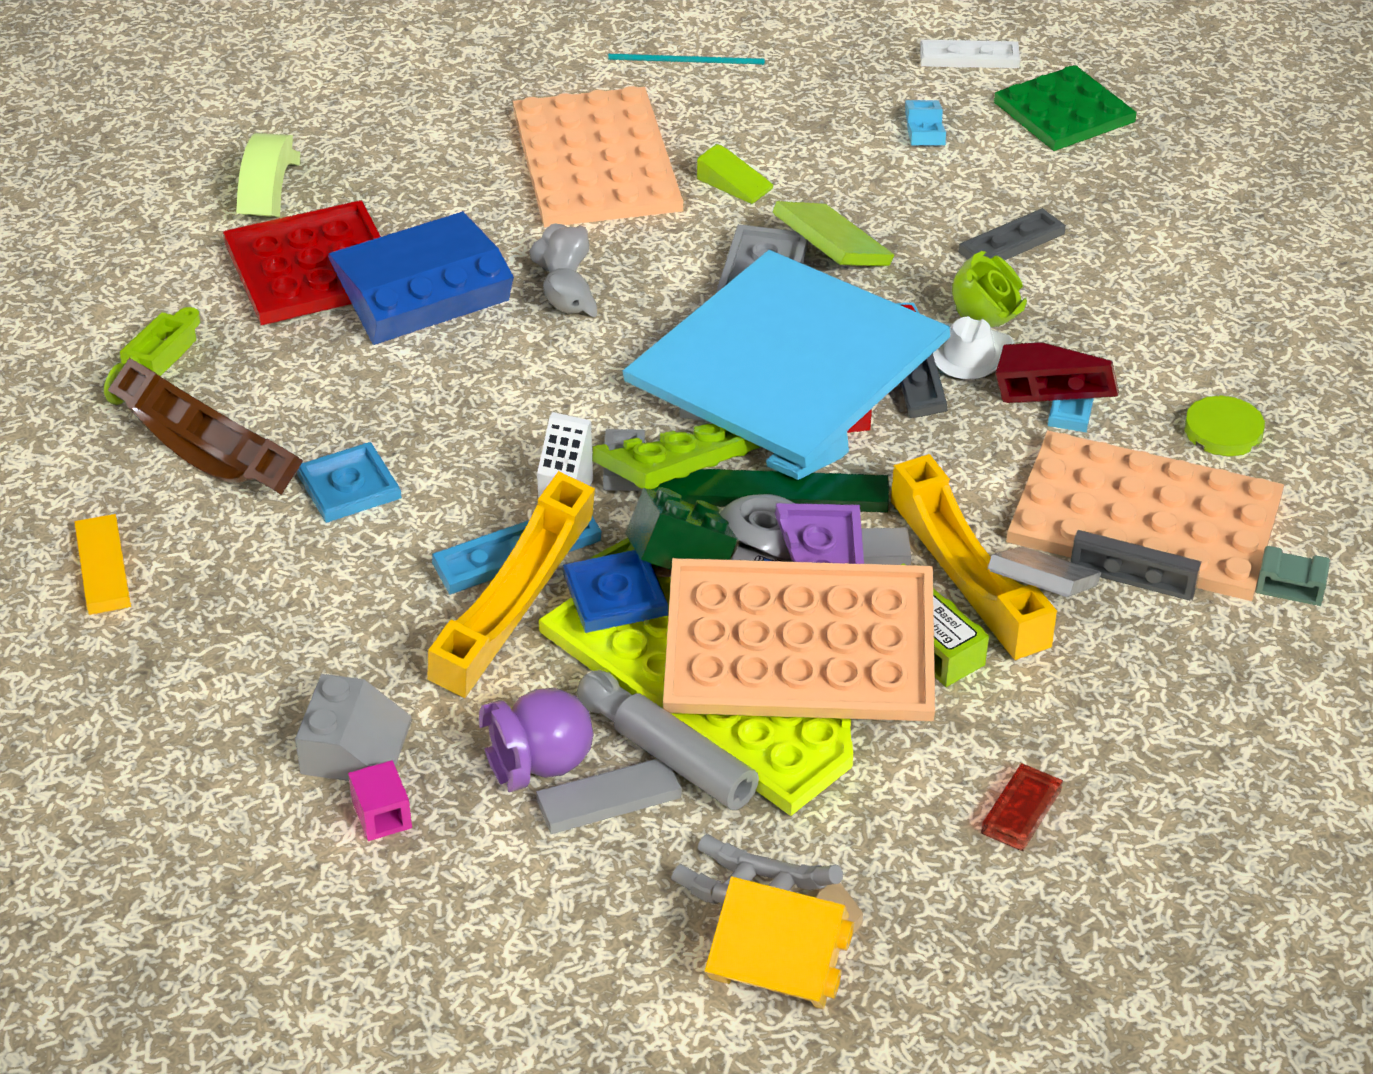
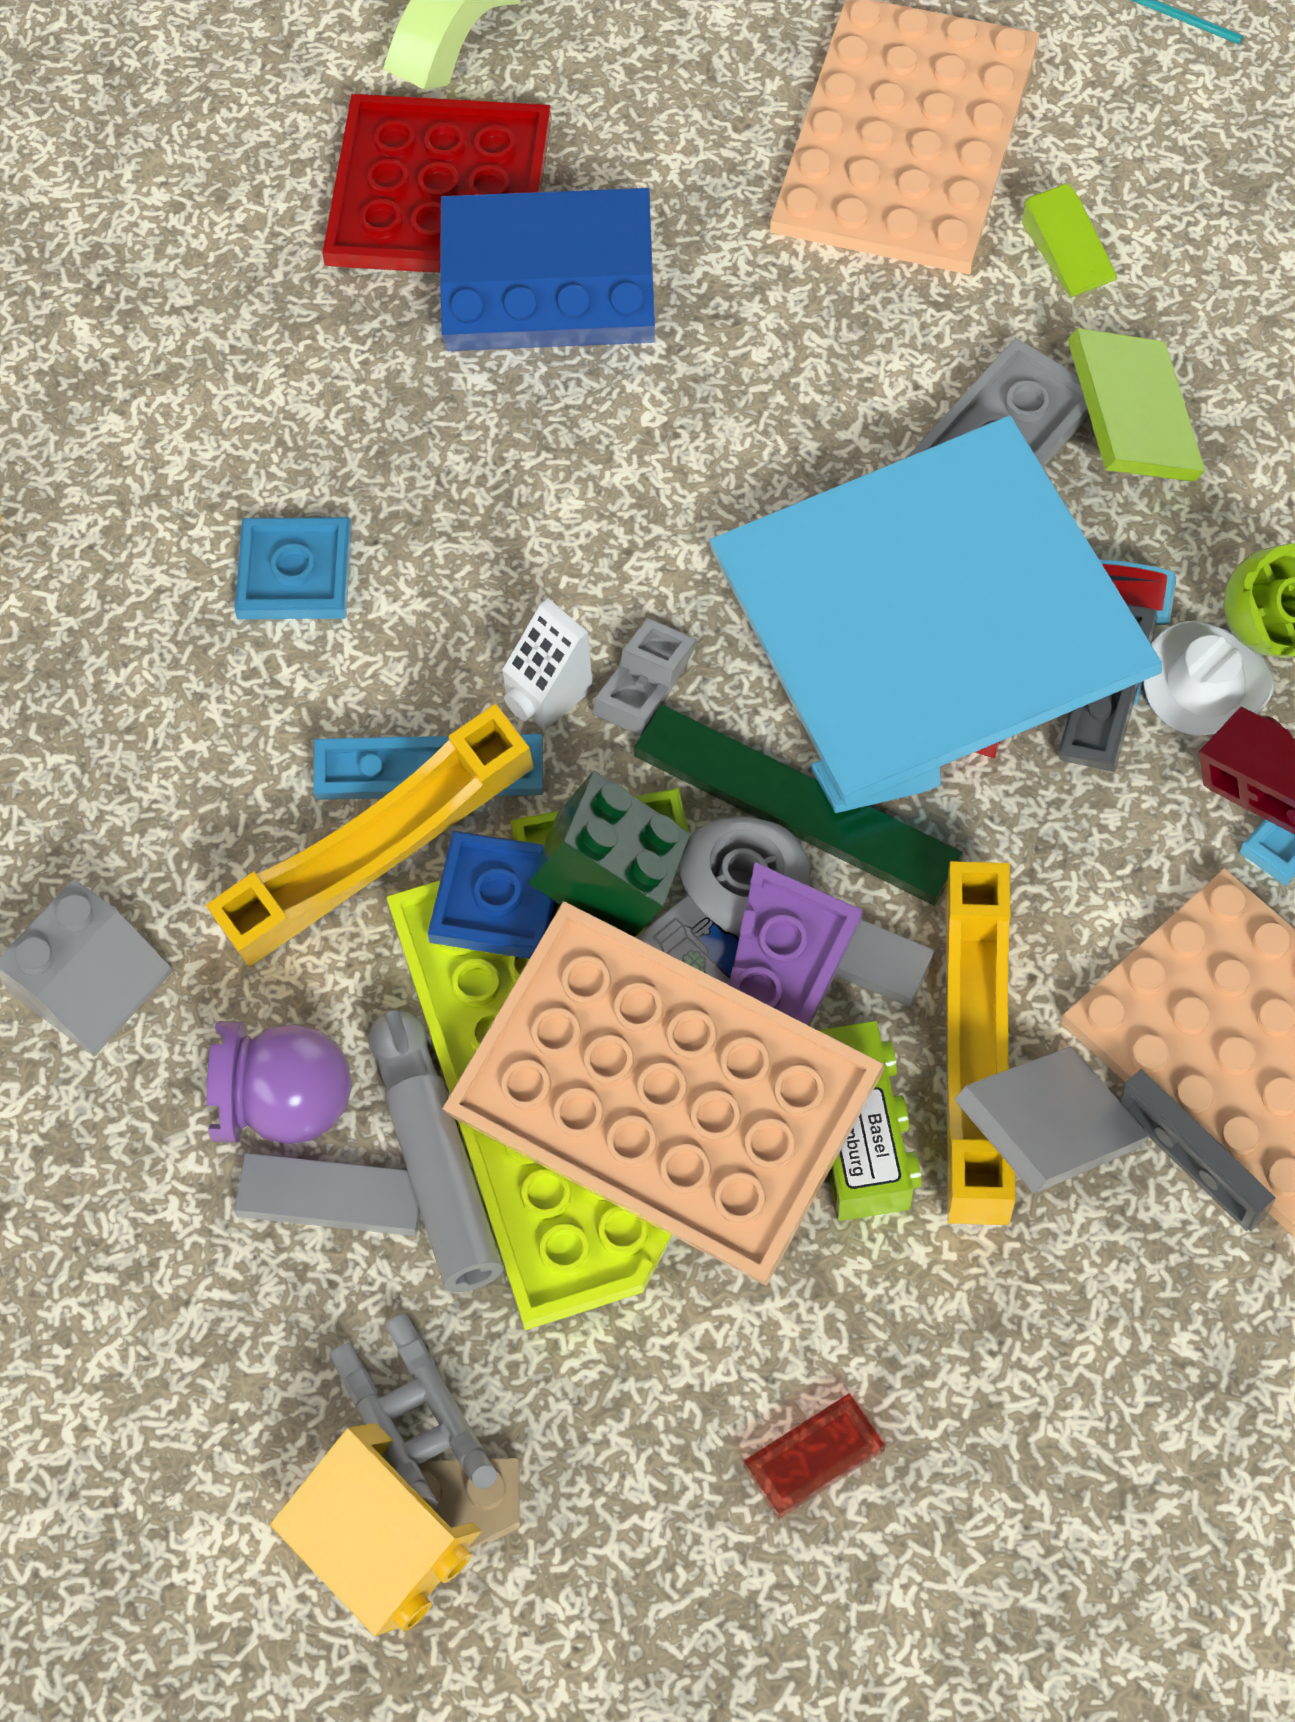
camera: 30 degrees right, 20 degrees up
(151, 348) = (168, 265): lime piece -> none
(201, 433) = (152, 426): reddish brown piece -> none
(380, 800) = (59, 1083): dark pink brick -> none
(561, 253) = (749, 300): light grey animal -> none
(672, 456) = (678, 708): lime wing -> none

